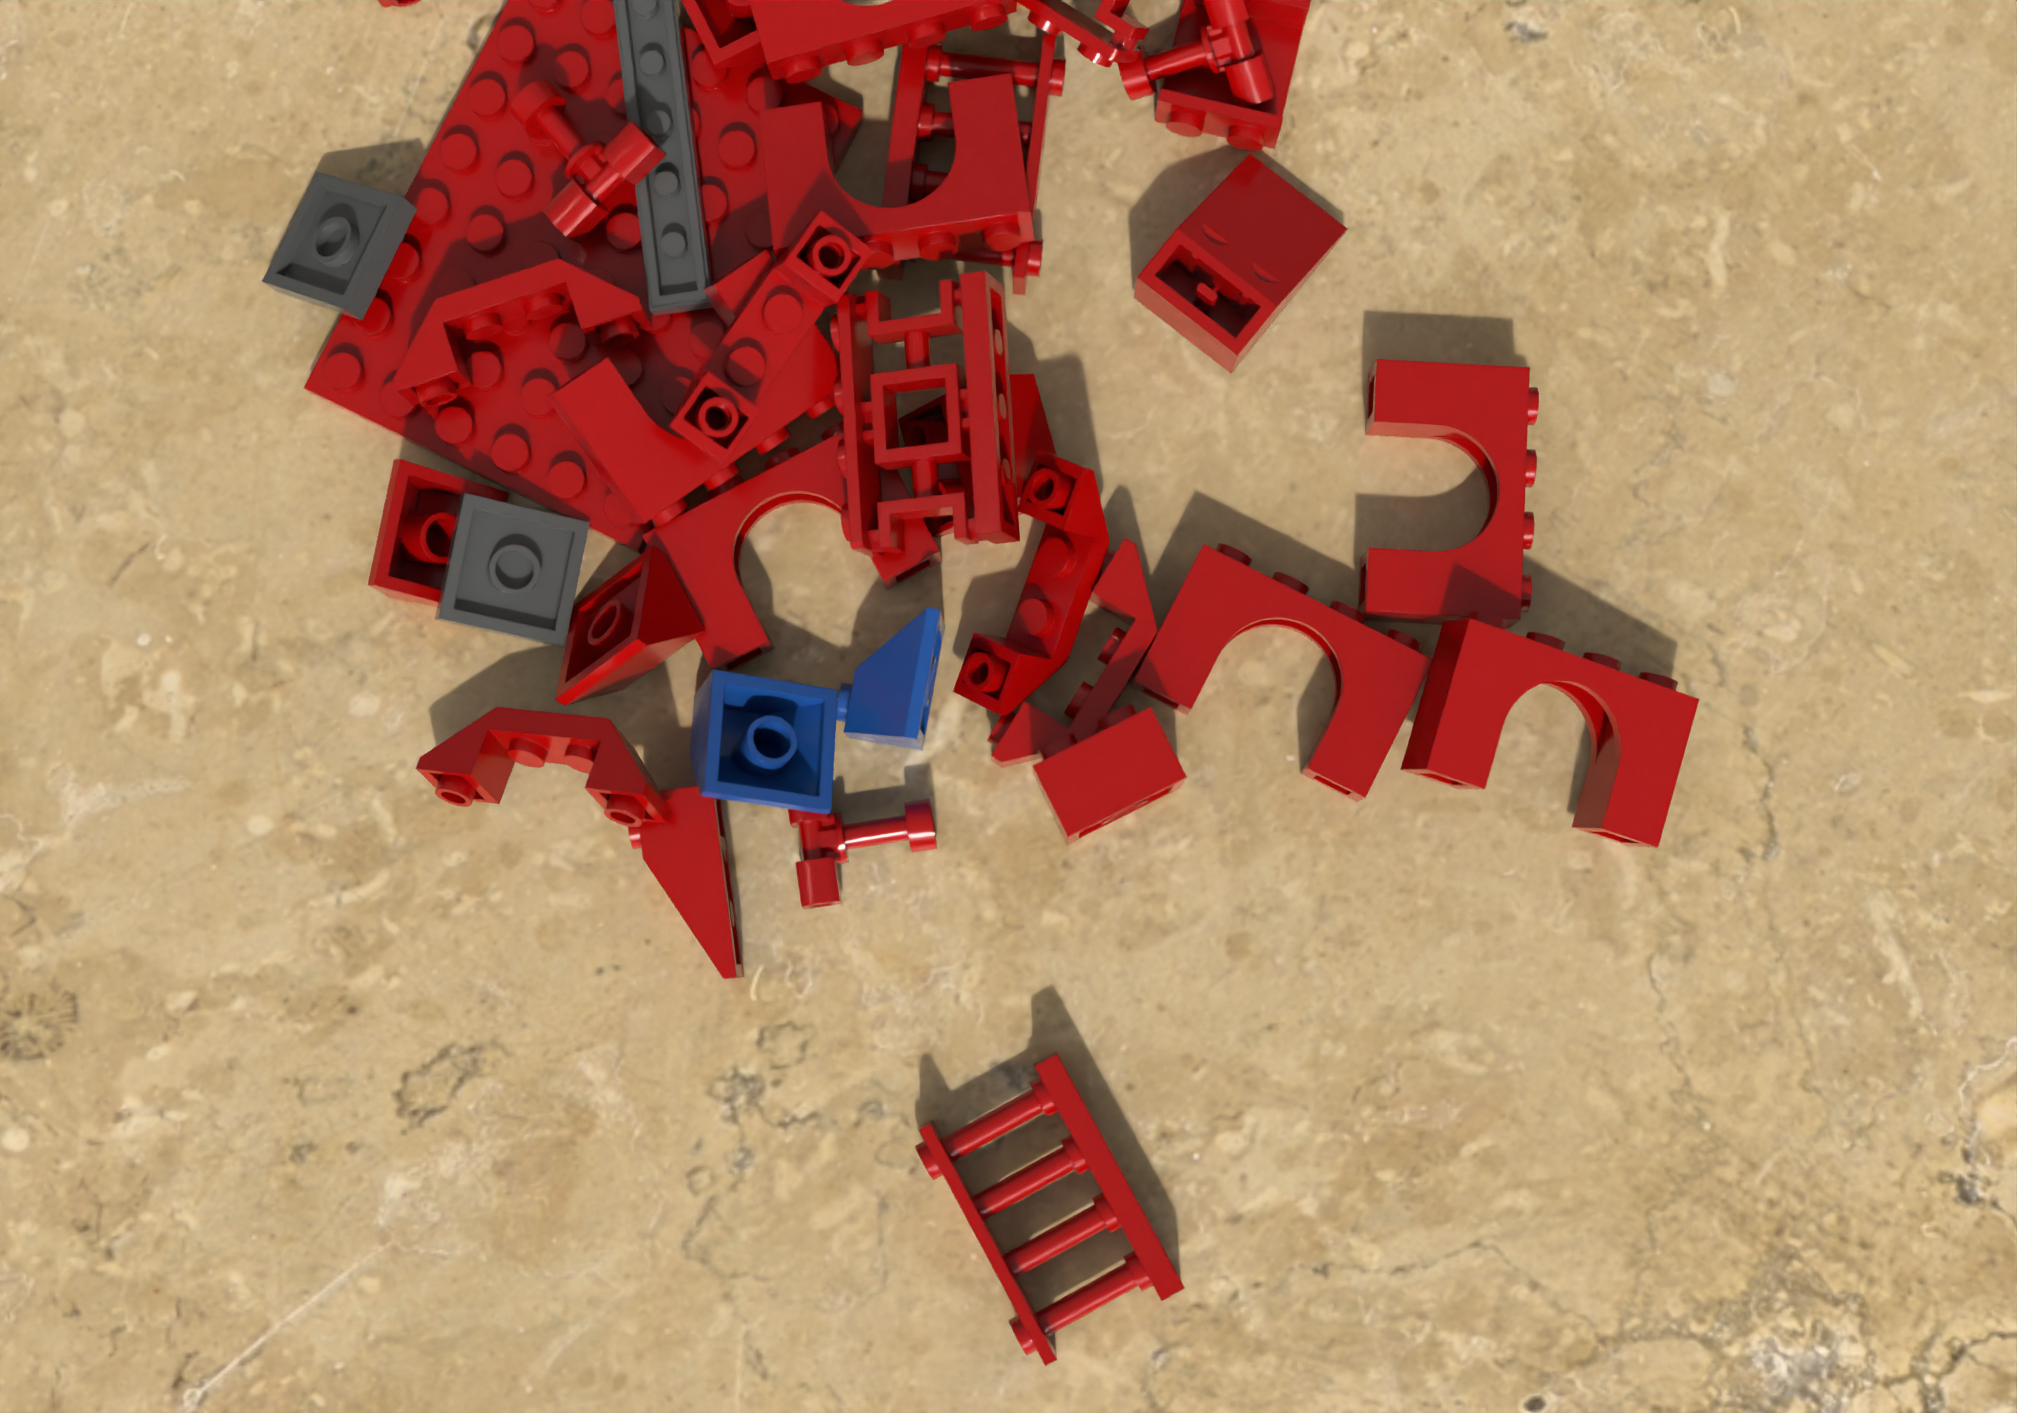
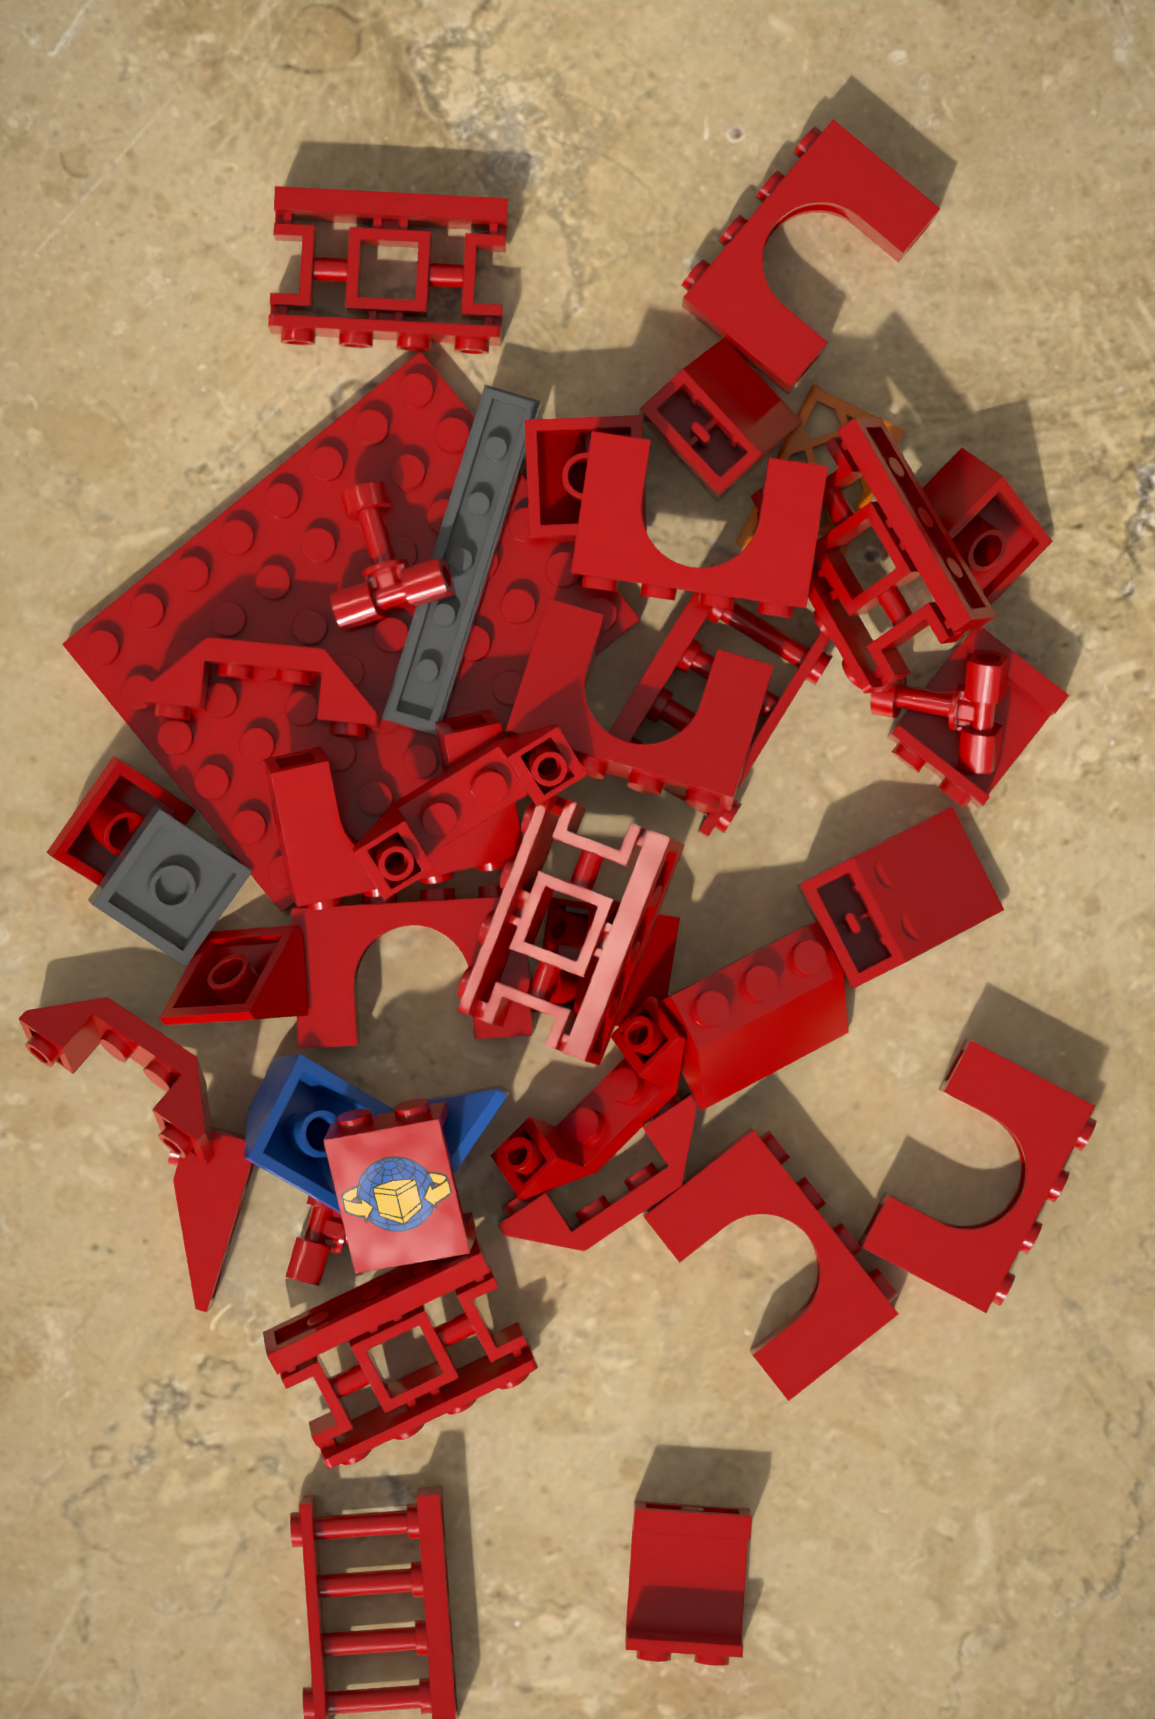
camera: 25 degrees right, 5 degrees up
(340, 245) = (145, 539): dark grey plate -> none
(871, 754) = (397, 1186): none -> panel
(914, 895) = (379, 1313): none -> red fence
(1108, 772) = (584, 1287): red slope -> none
(1156, 426) = (759, 1014): none -> red slope
(1347, 1032) = (687, 1581): none -> red panel
(1632, 721) = (1039, 1443): red arch -> none

